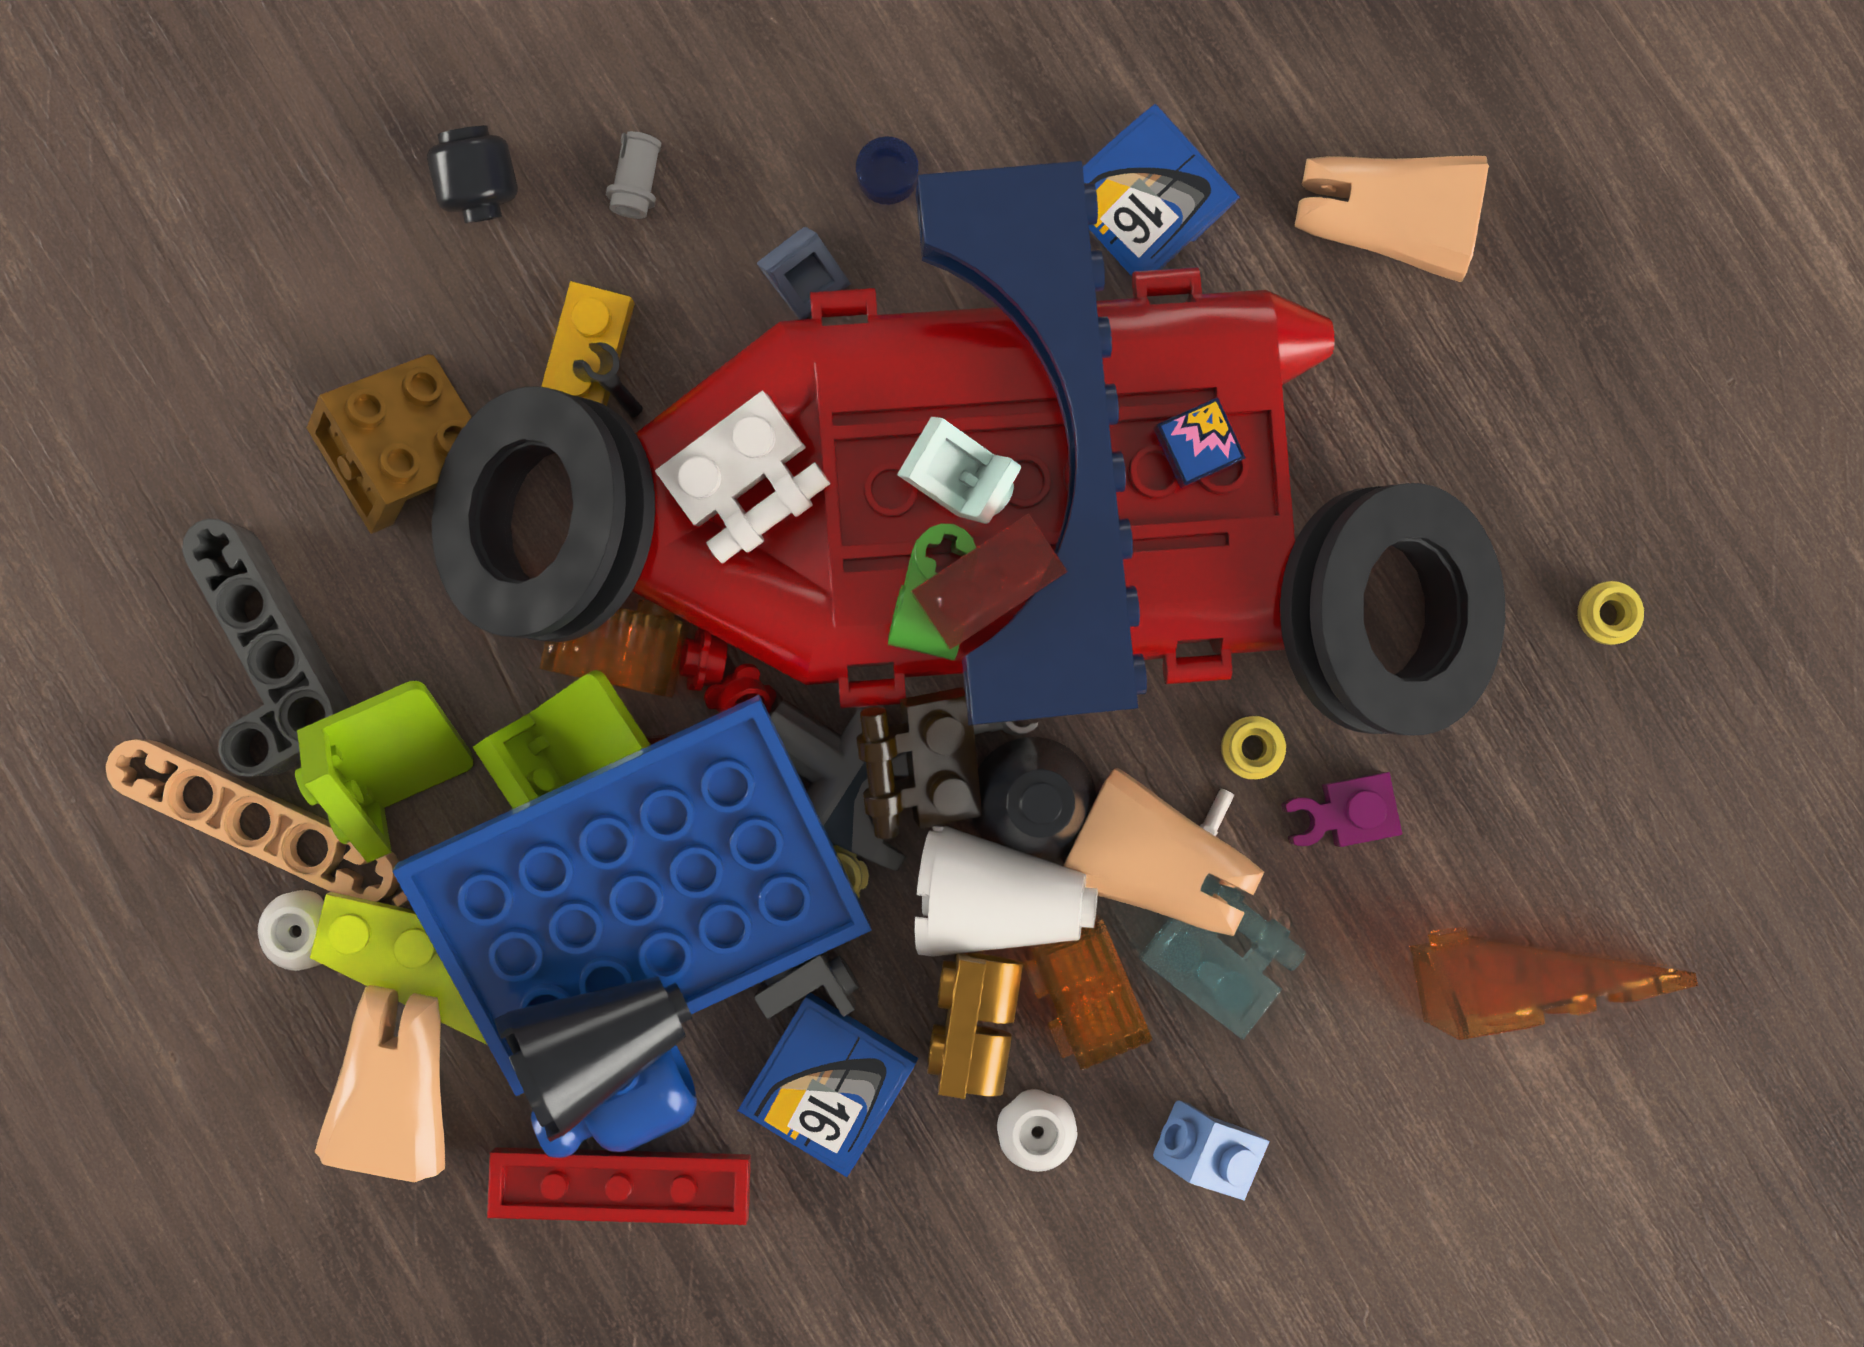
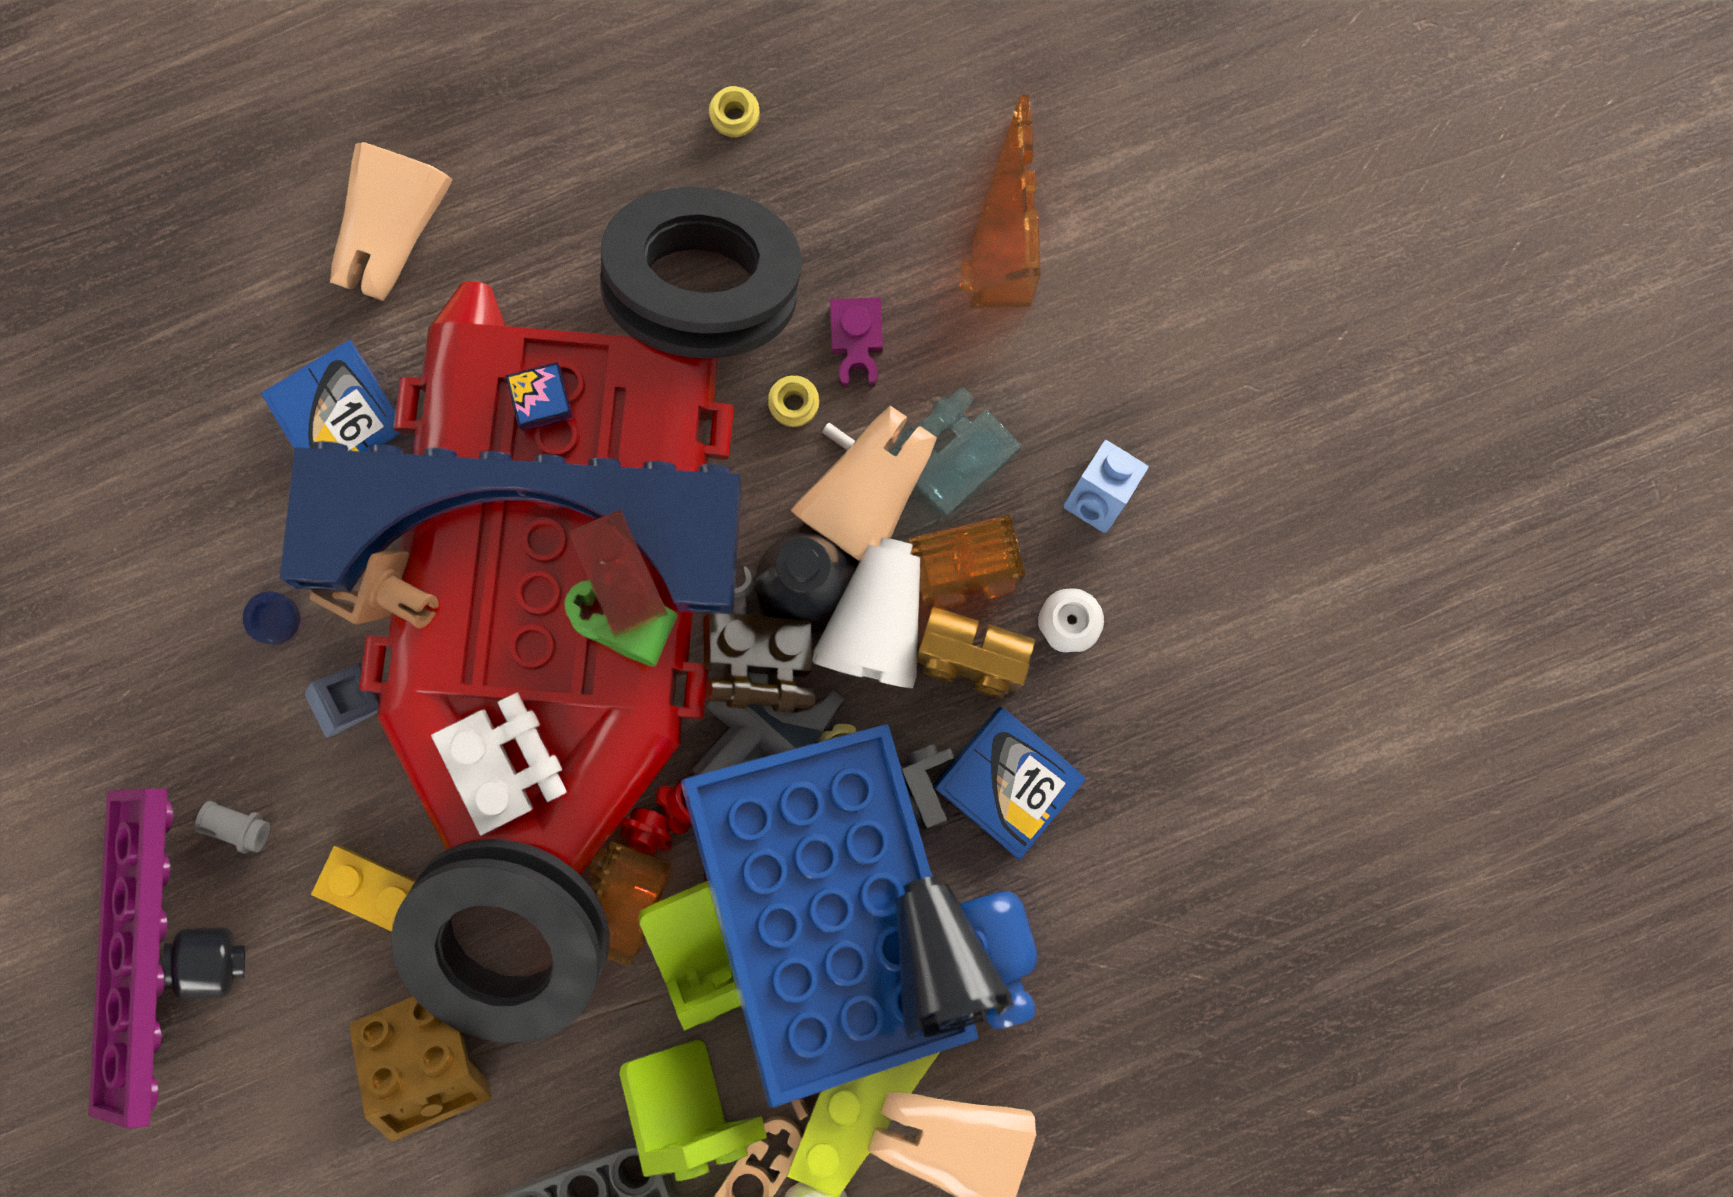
camera: 85 degrees left, 5 degrees down
(465, 87) = (129, 957): none -> magenta plate
(607, 377) = (389, 870): hand -> none
(619, 1186) = (1066, 968): red plate -> none
(923, 298) = (381, 594): none -> medium nougat bracket
(959, 472) = (527, 586): light aqua bracket -> none

